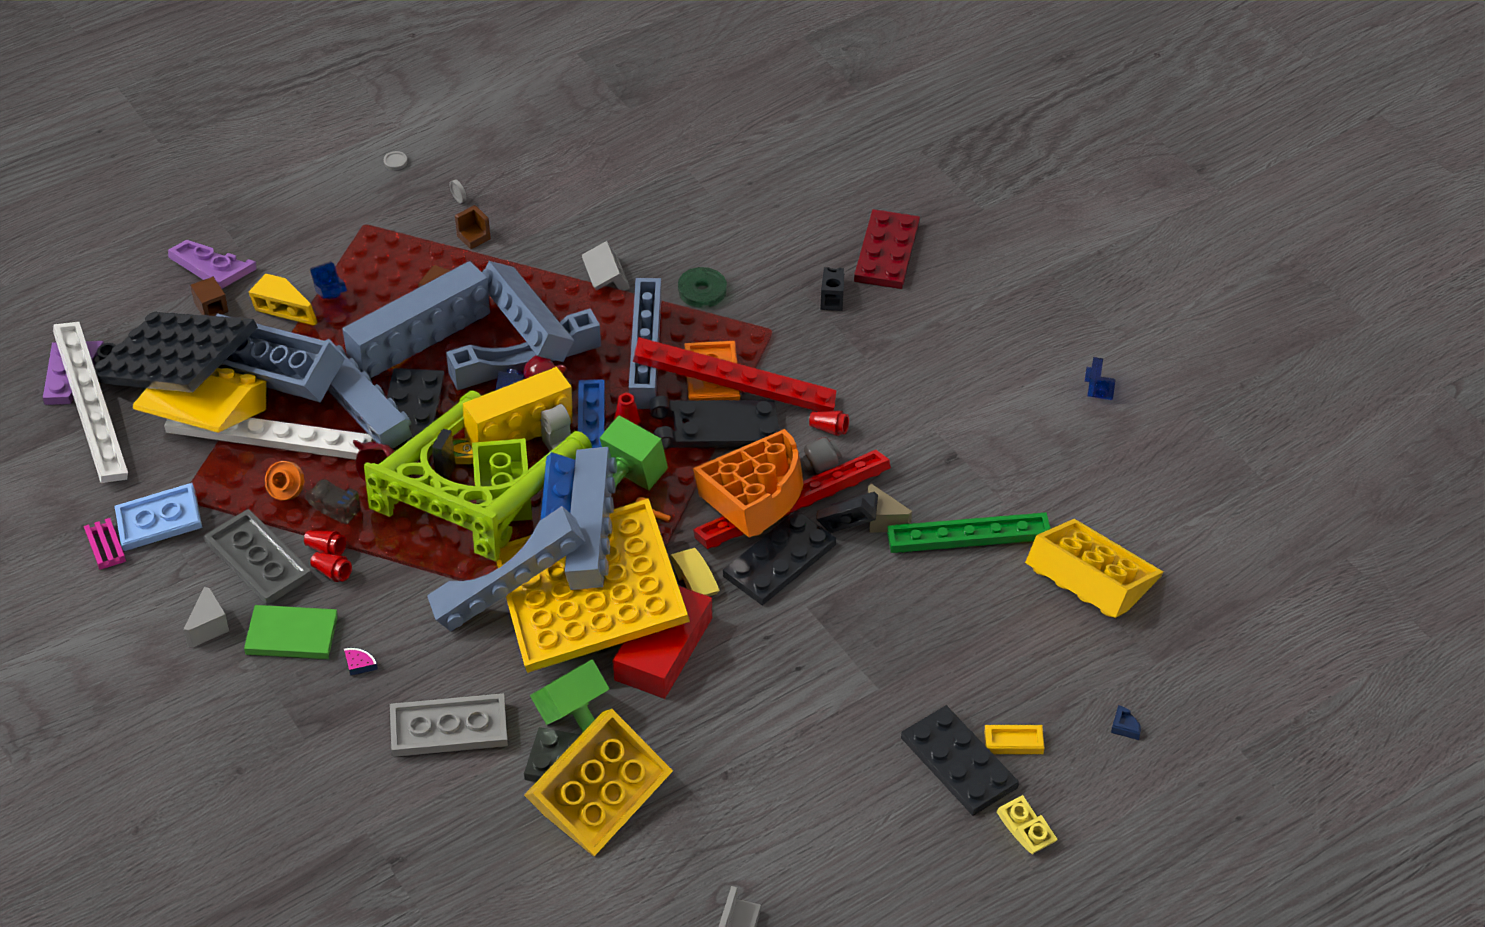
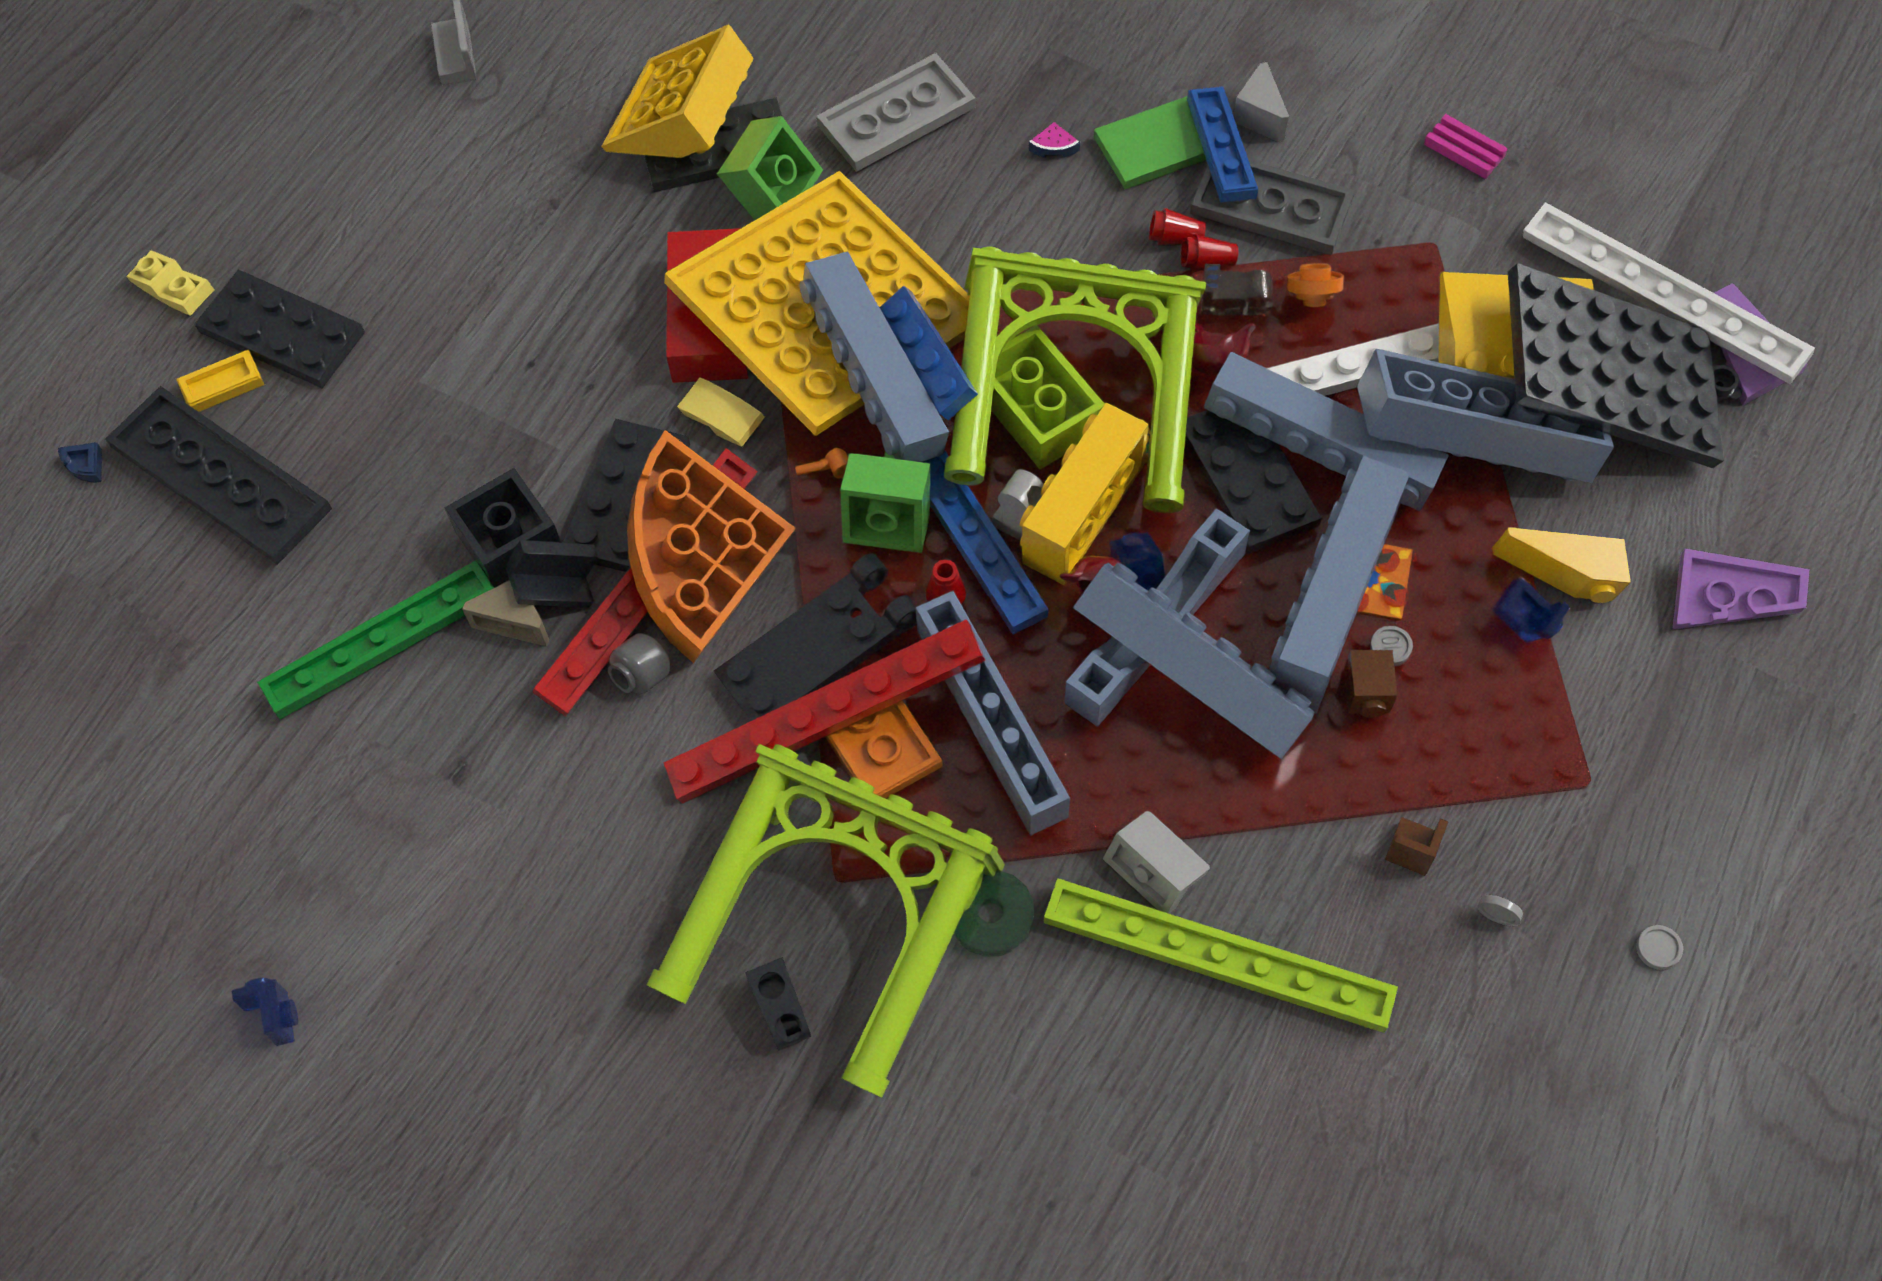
camera: 155 degrees right, 15 degrees up
(158, 516) = (1433, 198): light blue tile -> none
(209, 297) = (1678, 525): reddish brown brick -> none
(258, 596) = (1222, 144): none -> blue tile
(444, 454) = (1135, 384): black tile -> none
(551, 541) = (880, 266): sand blue arch -> none
(605, 227) = (1221, 955): none -> lime plate
(752, 318) = (767, 801): none -> lime arch
(830, 421) = (658, 735): red cone -> none
(865, 551) = (495, 520): none -> black brick
(887, 249) = (734, 1155): dark red plate -> none
(1036, 672) = (219, 474): none -> black plate
(1092, 567) = (179, 662): yellow slope -> none

